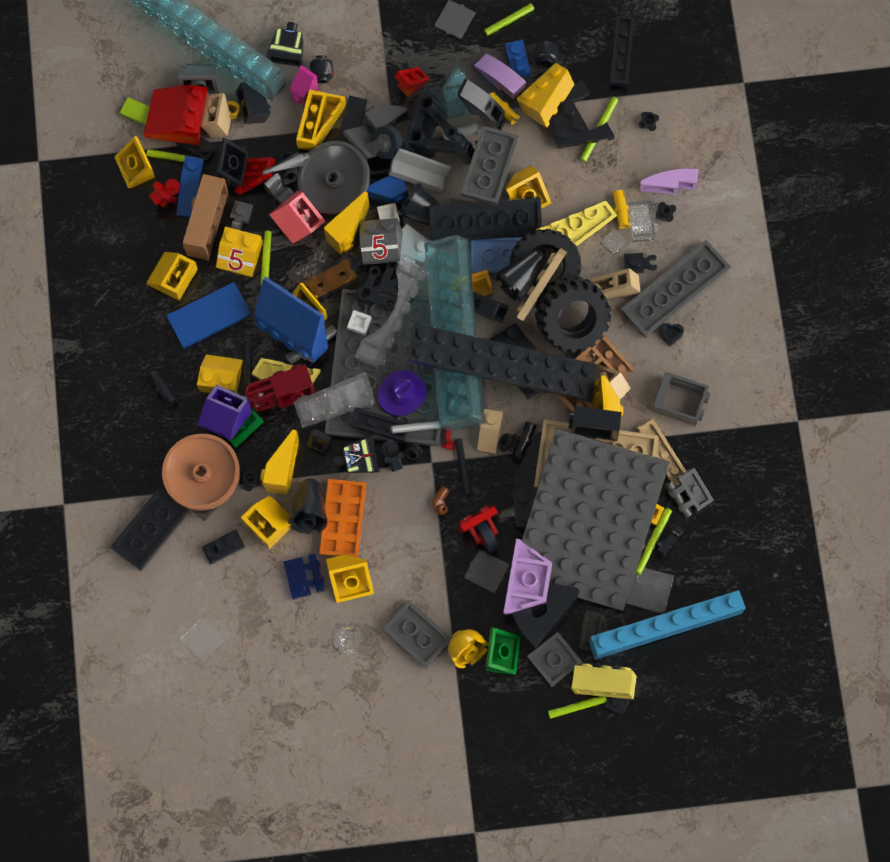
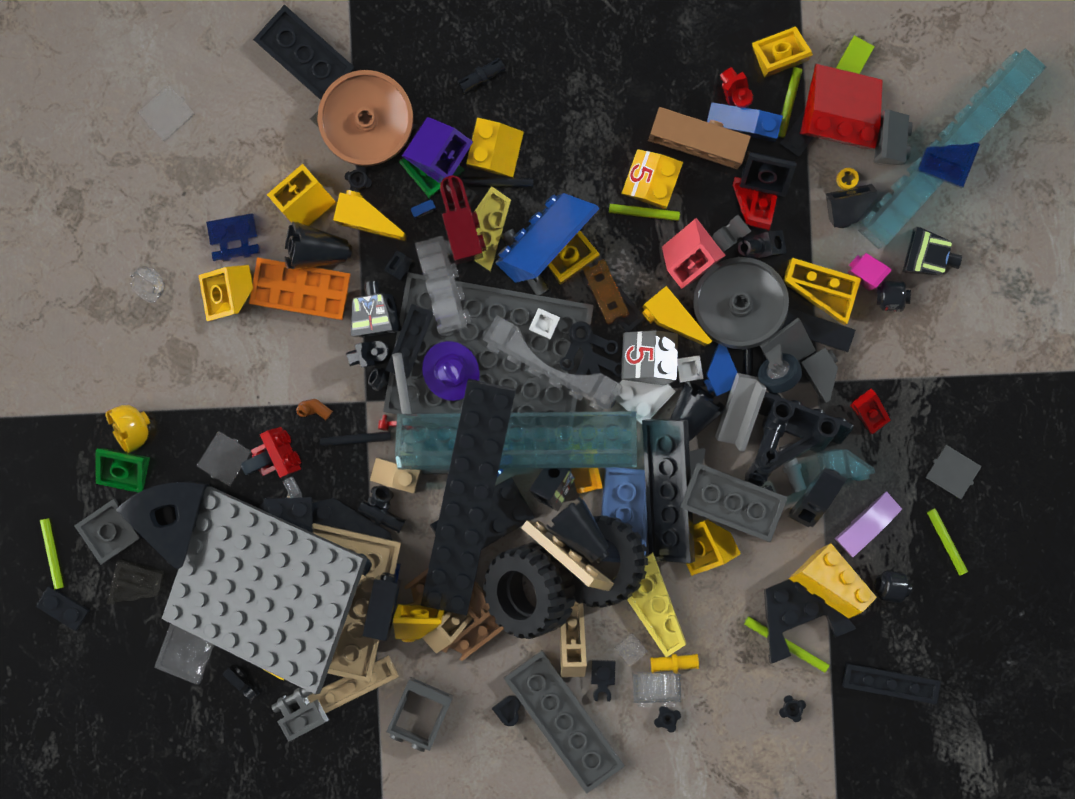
camera: 90 degrees right, 15 degrees up
(173, 274) = (628, 93): yellow slope -> none
(208, 315) = (574, 137): blue tile -> none
(216, 116) = (837, 158): tan slope -> none
(217, 27) = (949, 162): none -> clear blue wing
(223, 547) = (277, 142): black plate -> none
(240, 214) = (705, 183): dark grey plate -> none
(272, 425) = (423, 209): none -> blue tile
(294, 161) = (764, 252): piece -> none
(417, 634) = (150, 369): dark grey plate -> none
(508, 111) = (824, 524): yellow pin -> none
(518, 58) = (891, 549): blue plate -> none
(527, 579) = (194, 507): lavender wing -> none
(604, 681) = (72, 588): light yellow brick -> none
(653, 540) = (243, 663): lime bar -> none
(666, 624) = (135, 670): dark azure brick -> none
(670, 181) = (707, 730): lavender slope -> none

